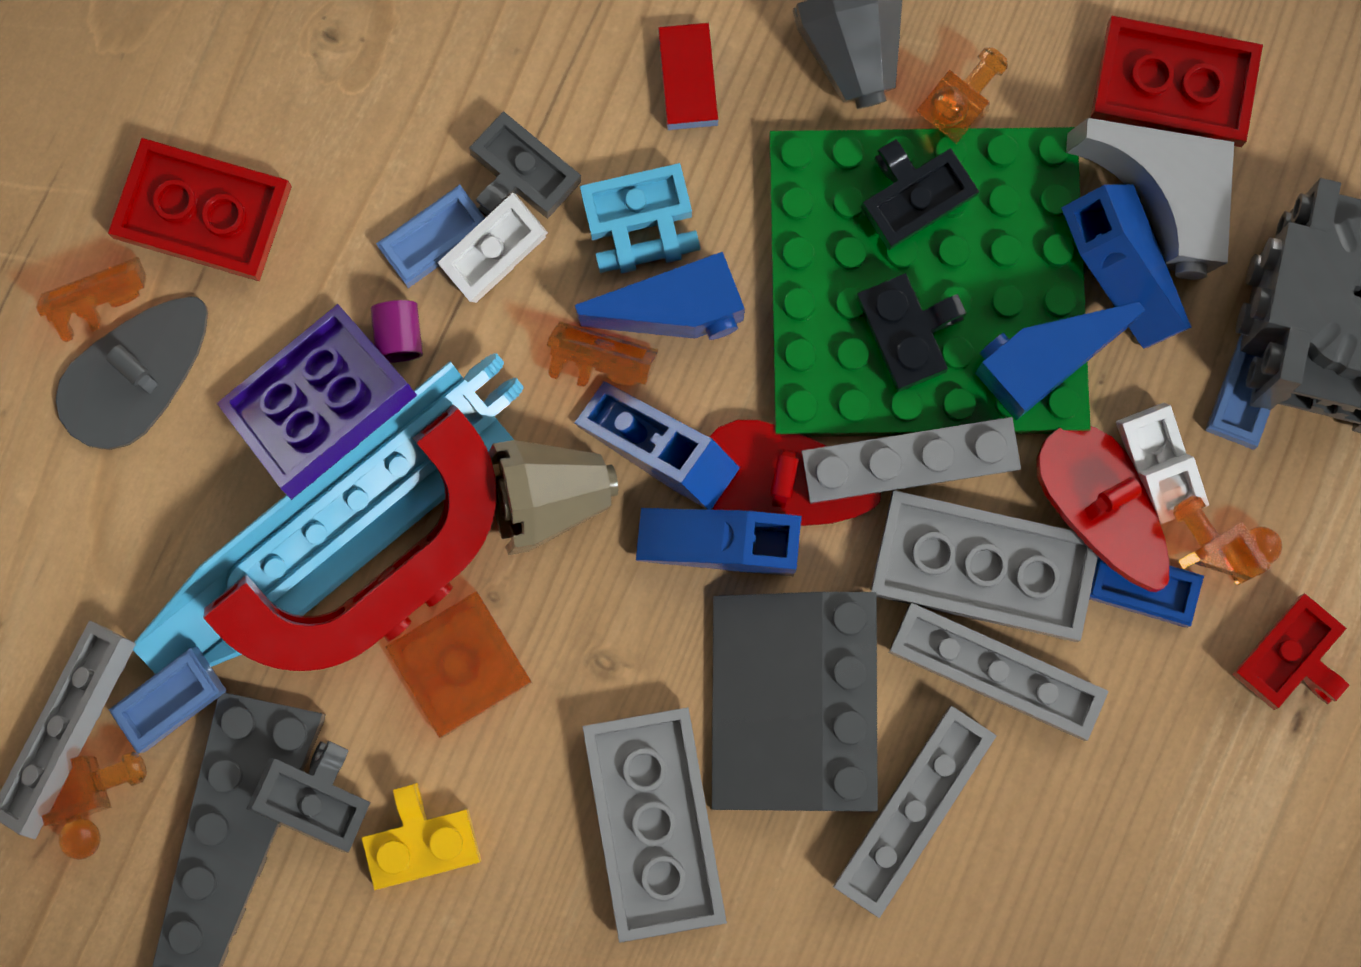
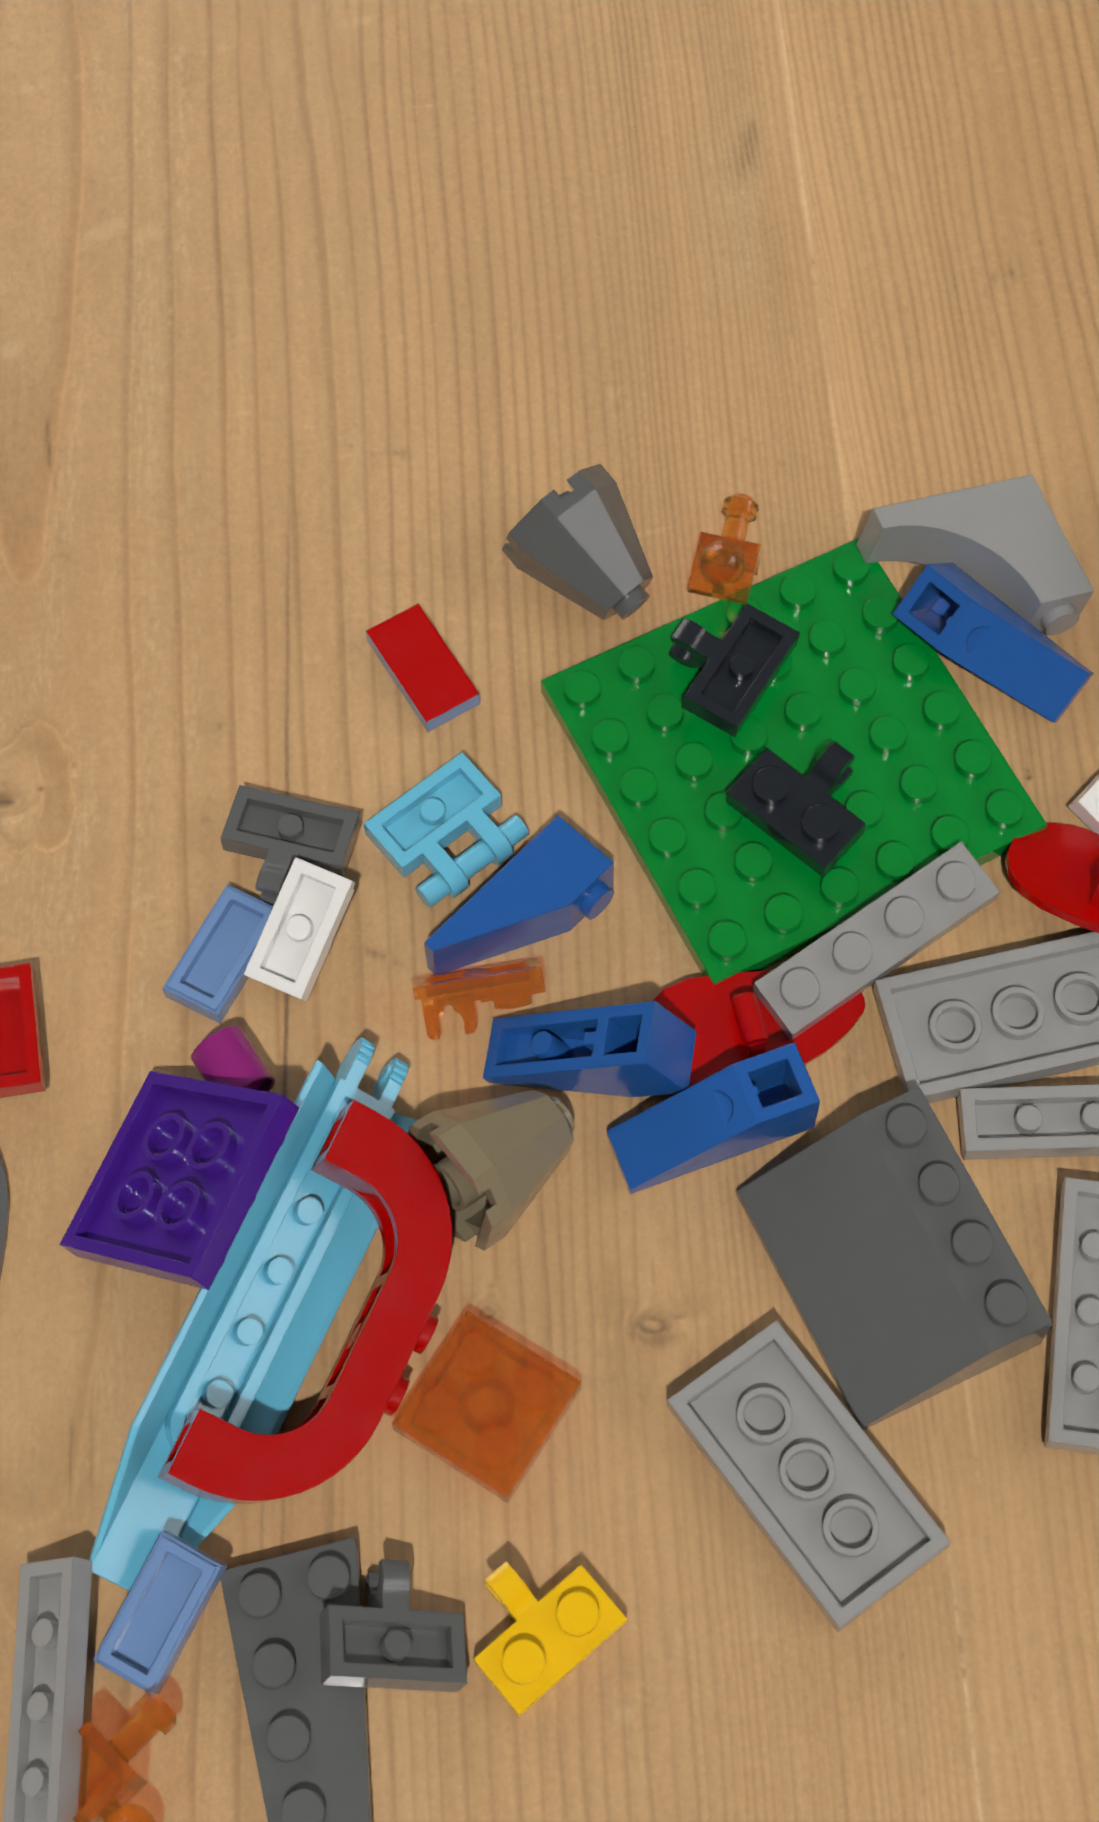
camera: 25 degrees left, 15 degrees down
(1045, 355) = (961, 760): blue slope -> none
(1176, 80) = (936, 444): red plate -> none

